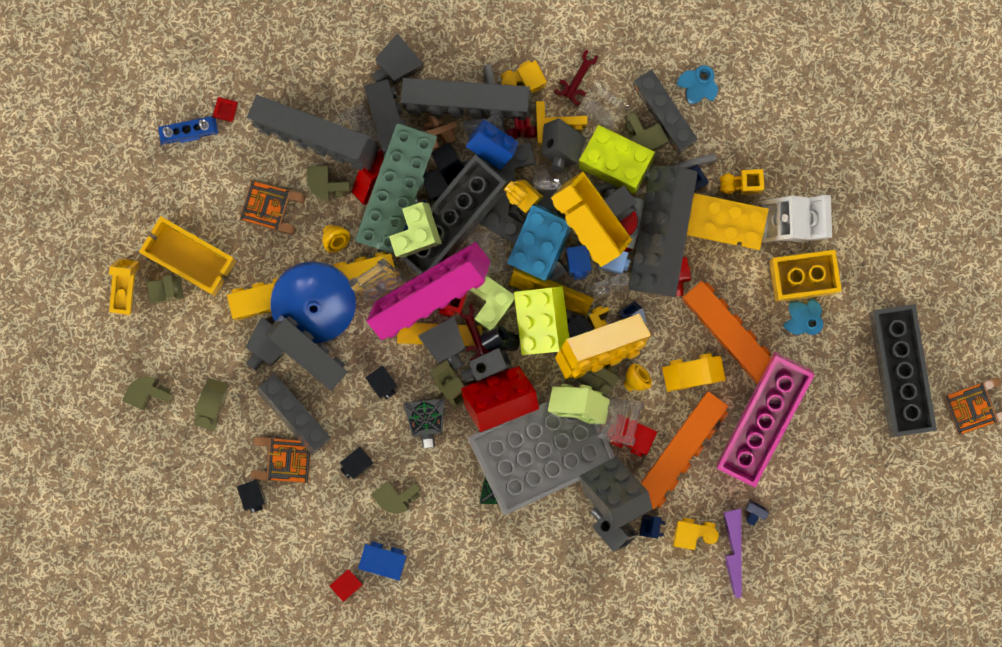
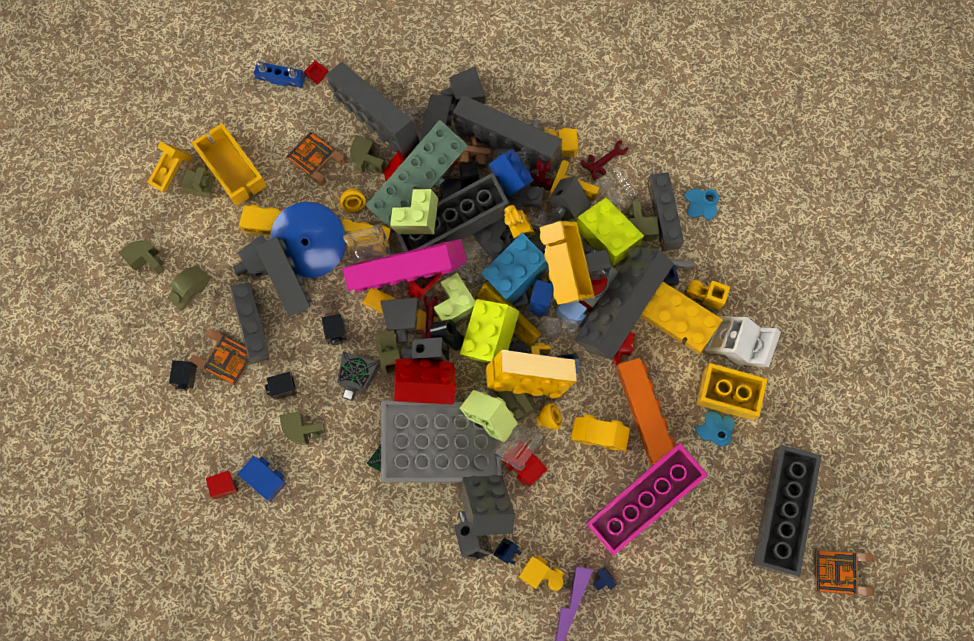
camera: 25 degrees right, 10 degrees down
(682, 447) = (561, 494): orange brick -> none

